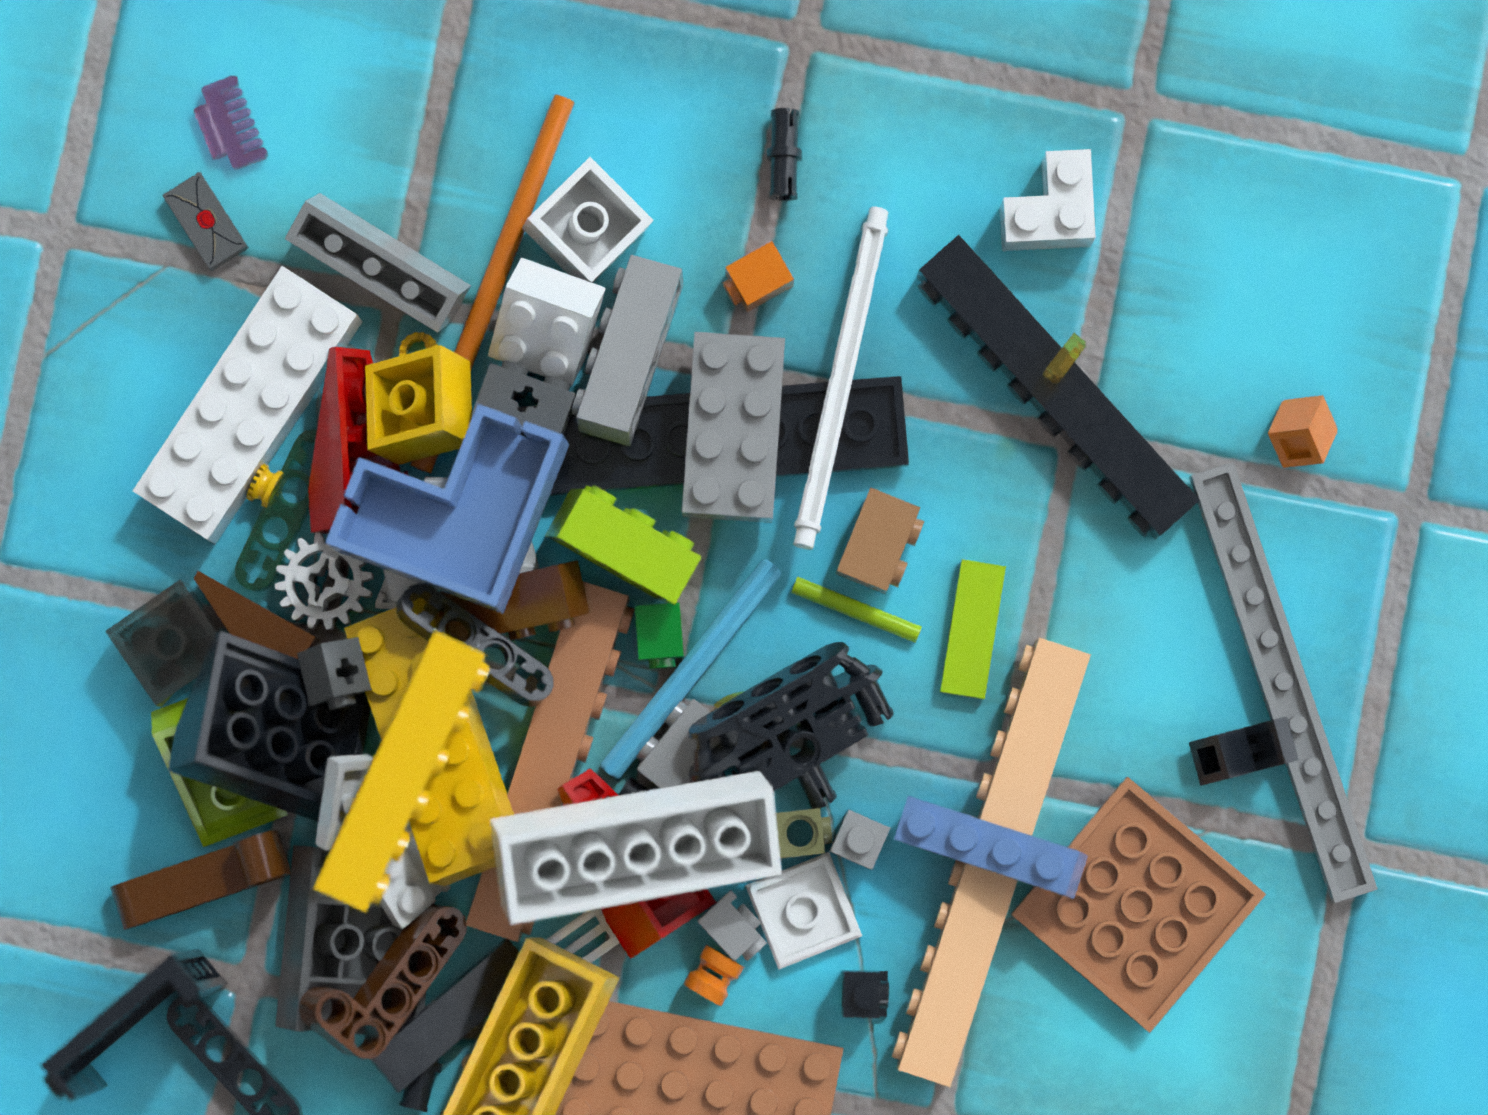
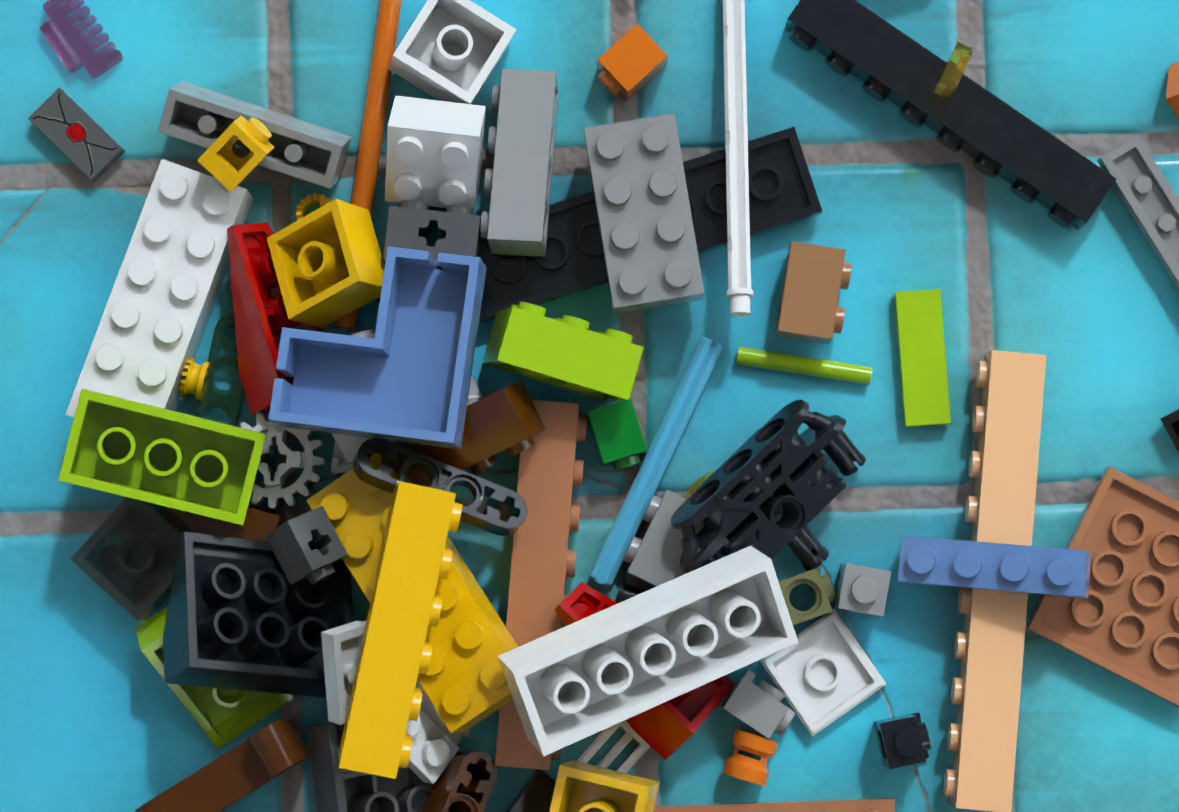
camera: 10 degrees left, 0 degrees up
(216, 554) = (162, 456): none -> lime brick
(344, 285) = (224, 159): none -> yellow brick

